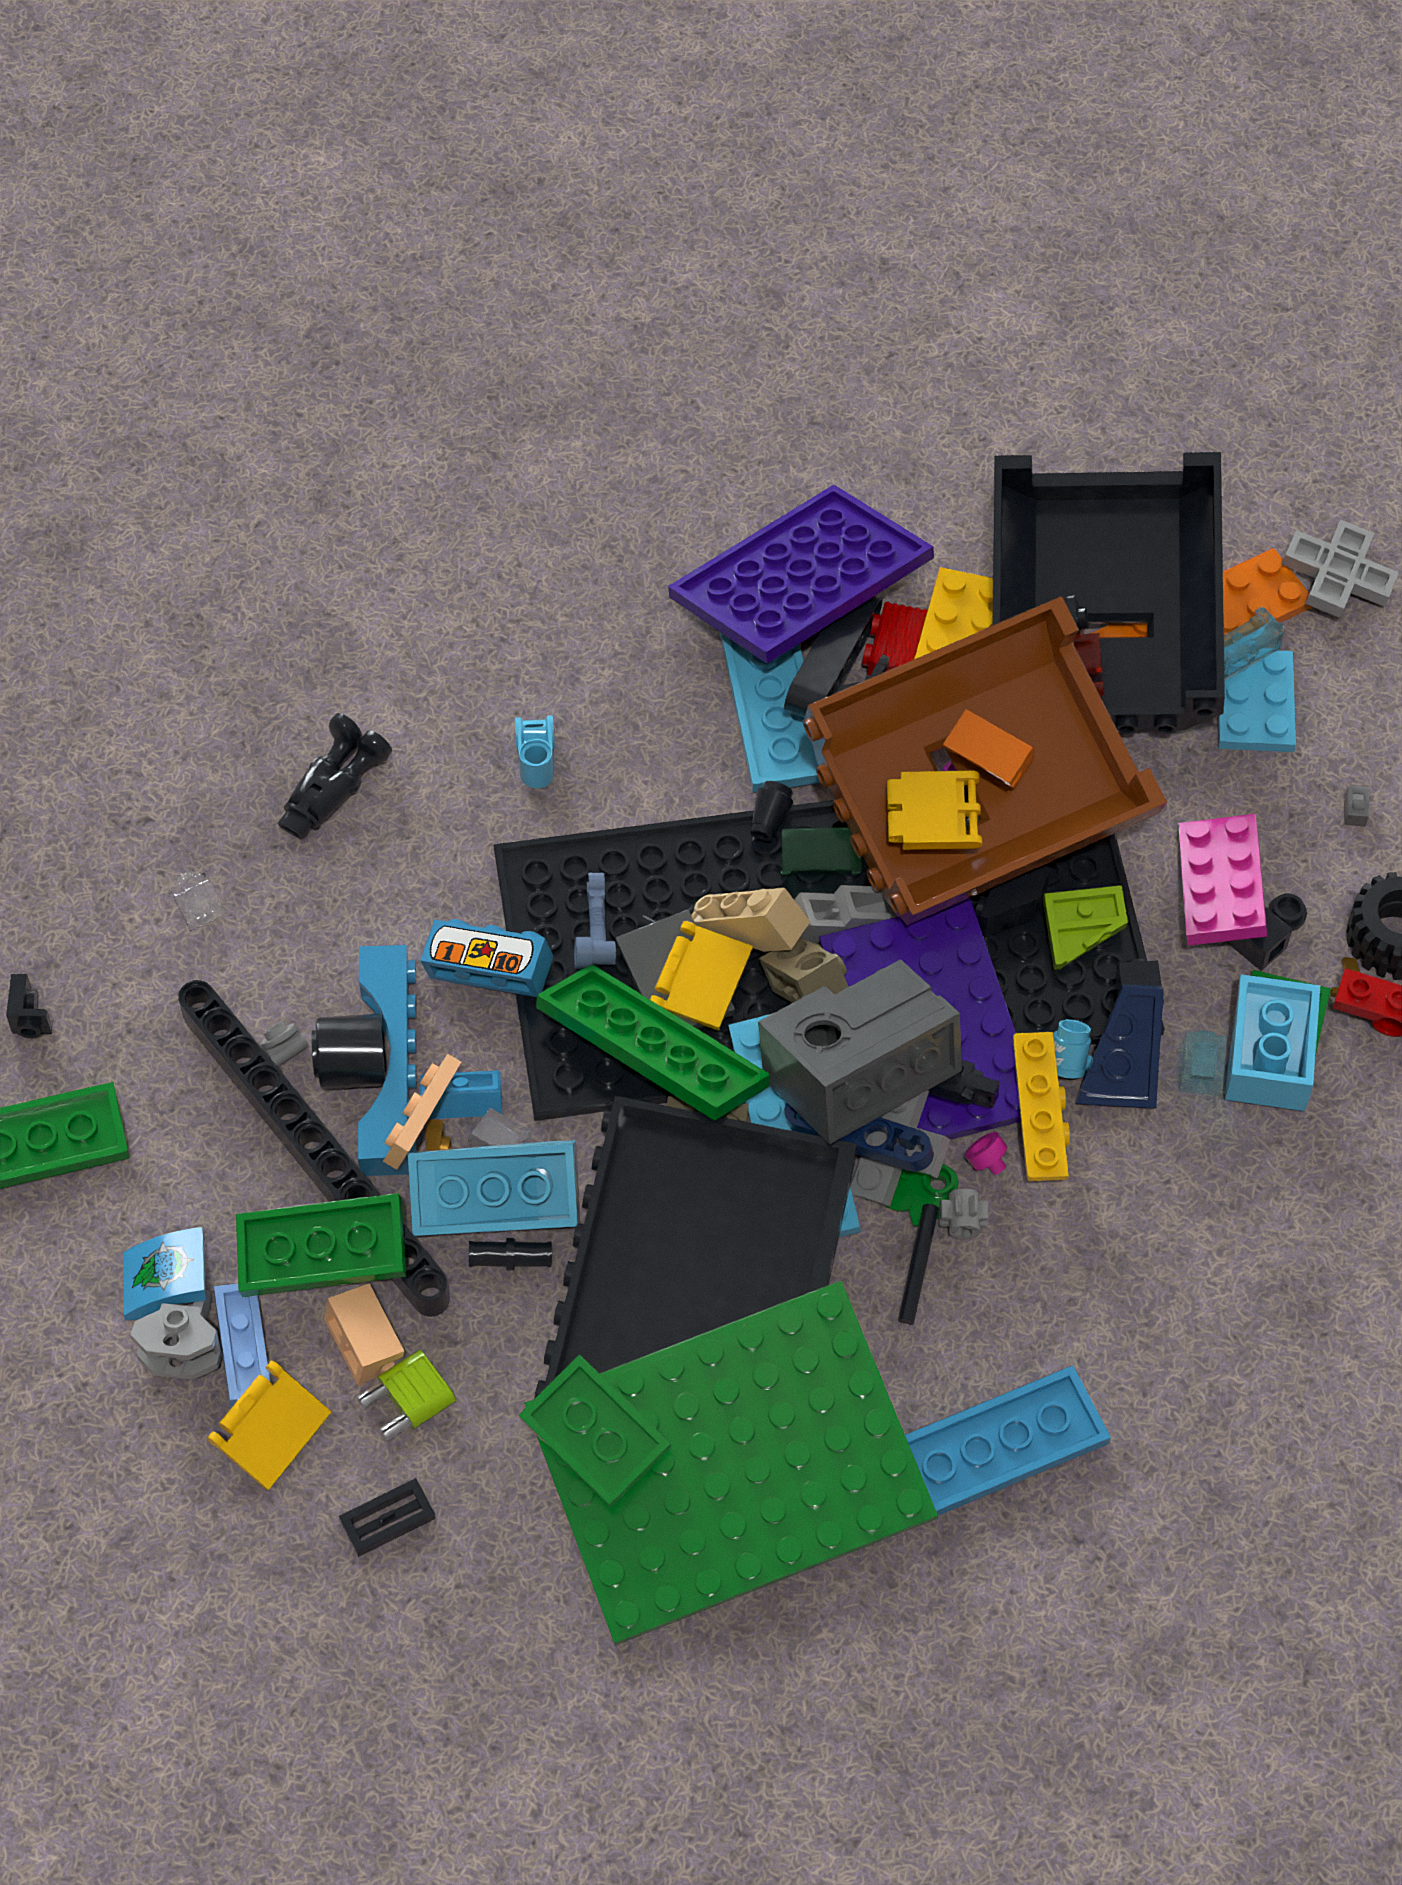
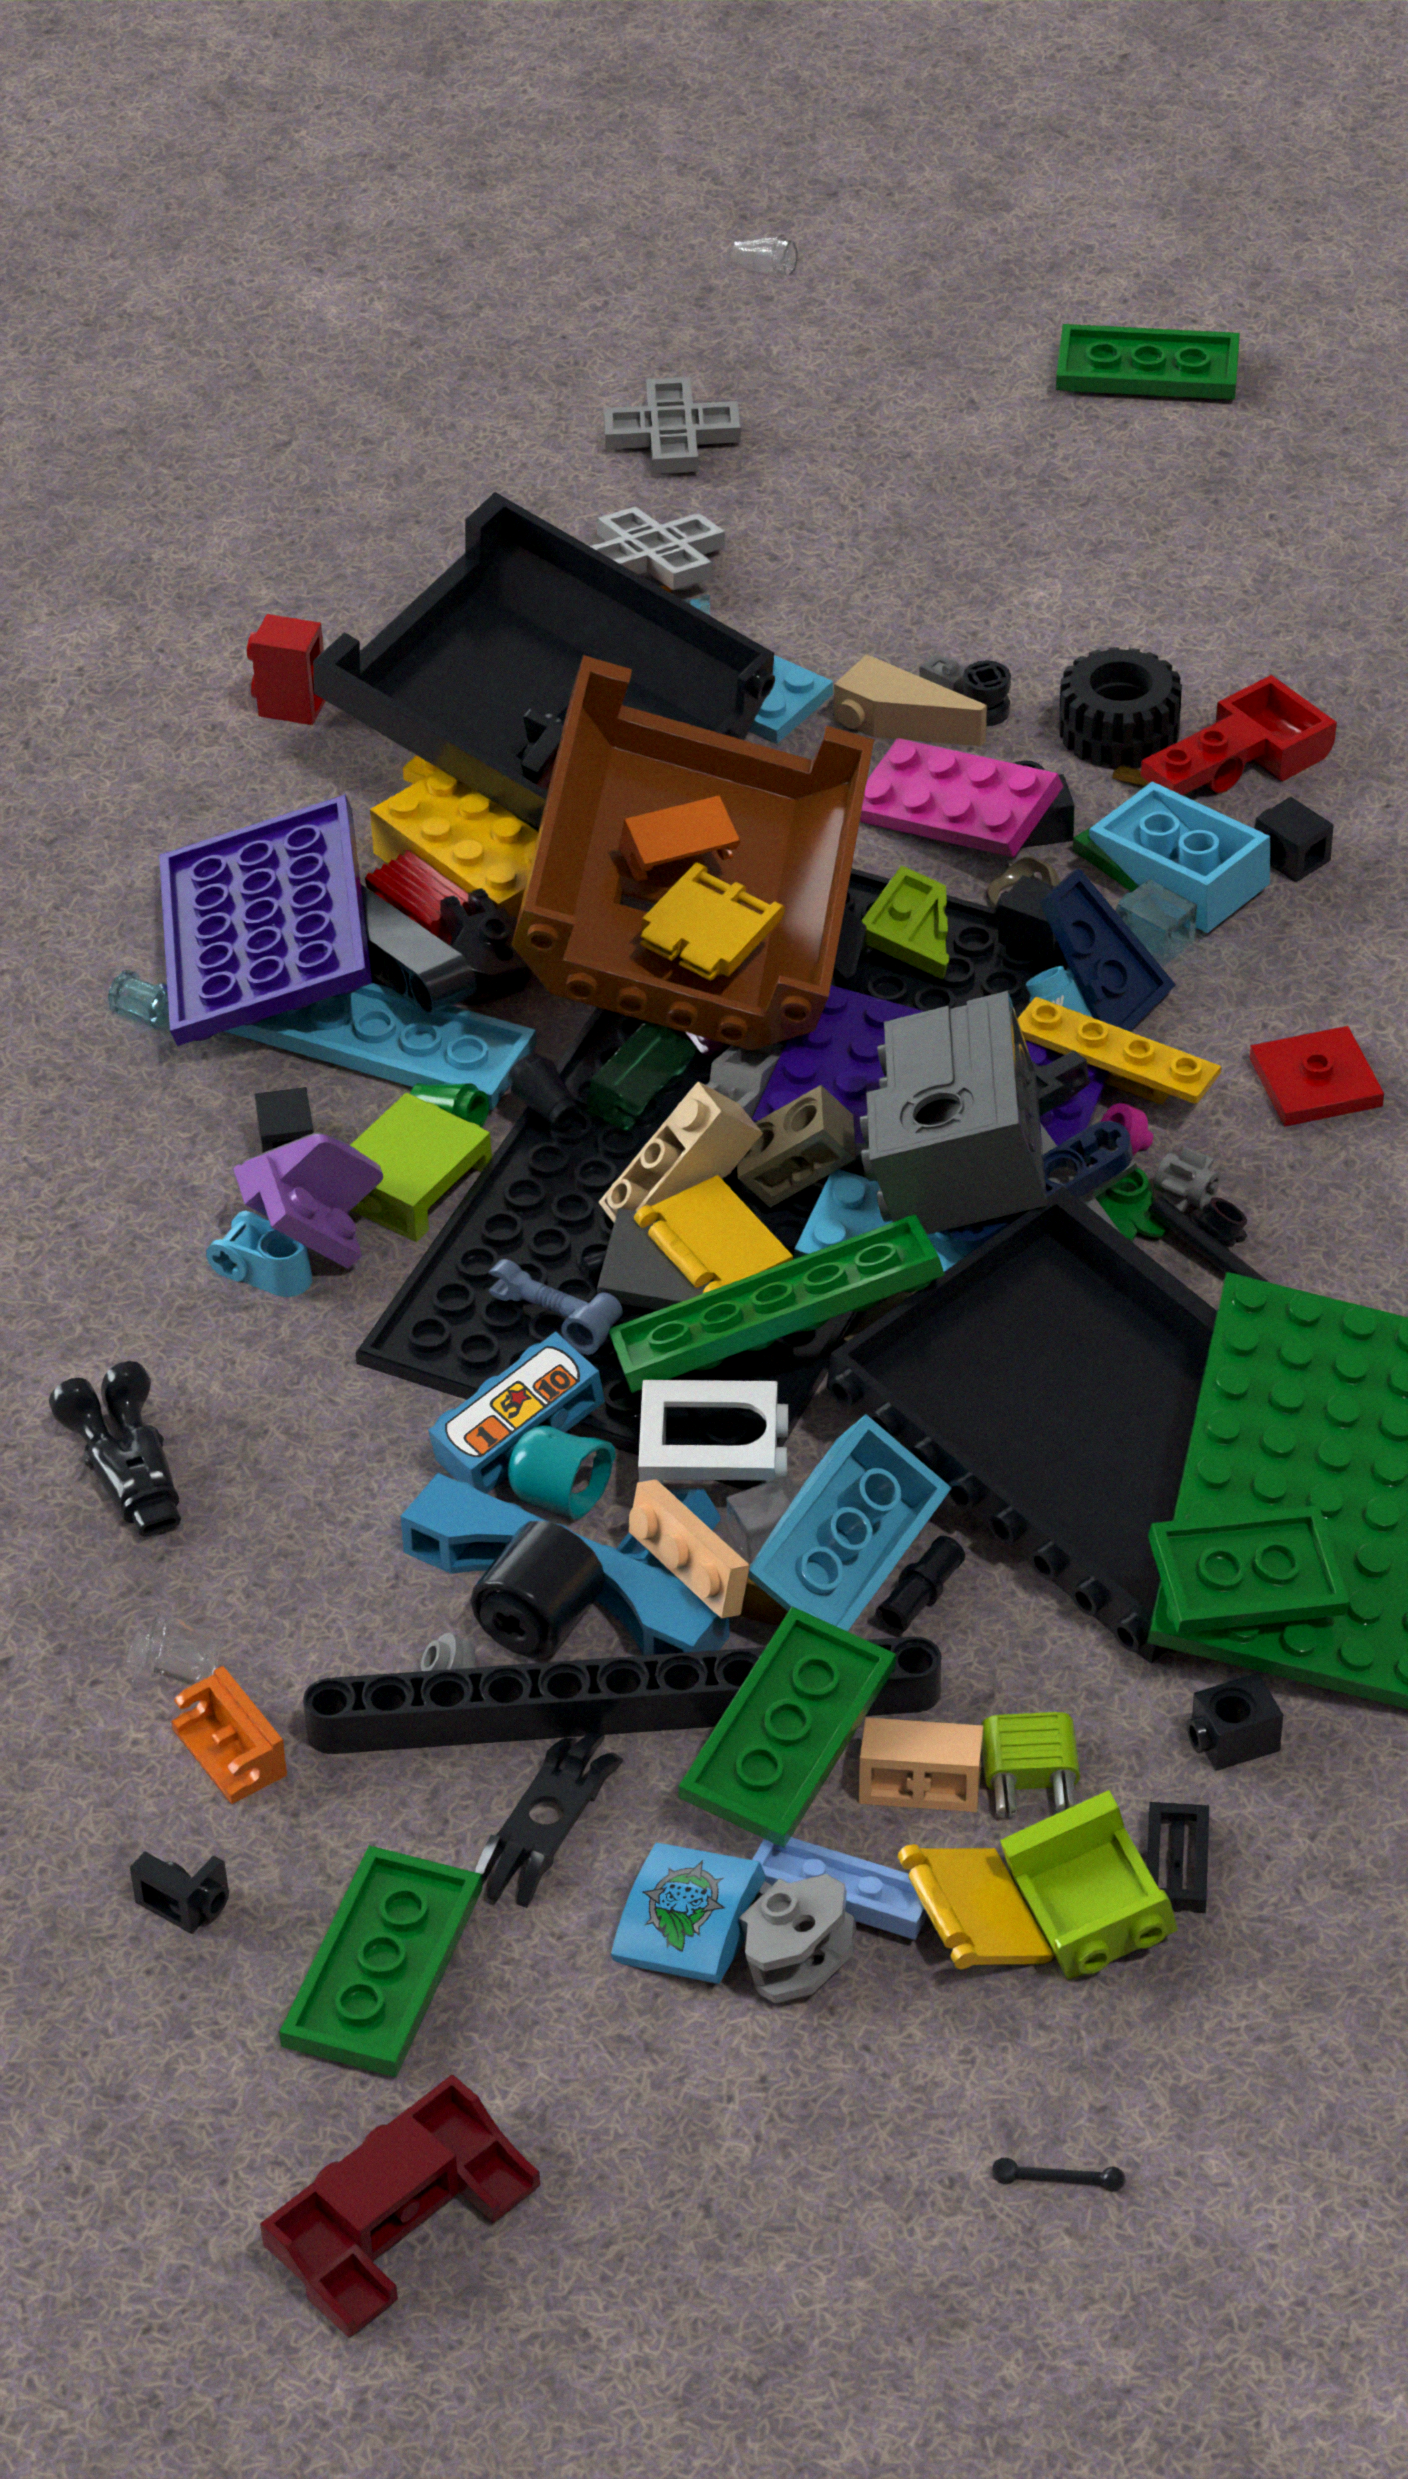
camera: 55 degrees left, 15 degrees down
(92, 1552) = (1006, 2171): none -> black hinge
(155, 964) = (229, 1736): none -> orange hinge
(228, 1157) = (525, 1838): none -> black piece
(320, 1482) = (1088, 1886): none -> lime panel
(455, 997) = (546, 1467): none -> teal helmet
(514, 1508) = (1235, 1722): none -> black brick
(515, 1040) = (711, 1462): none -> white panel
(571, 744) = (310, 1190): none -> medium lavender piece
(646, 695) = (283, 1117): none -> black brick
(664, 775) = (420, 1159): none -> lime panel
(702, 547) = (146, 1009): none -> clear light blue bush
(733, 770) = (458, 1099): none -> green cone
(954, 1251) = (1222, 1221): none -> black plate
(1042, 436) = (284, 669): none -> red brick
(1136, 1238) = (1316, 1076): none -> red plate
(1196, 956) = (1026, 866): none -> dark tan piece
(1298, 796) = (904, 706): none -> tan slope
(1353, 839) = (989, 684): none -> black wheel
(1353, 1101) = (1297, 838): none -> black brick

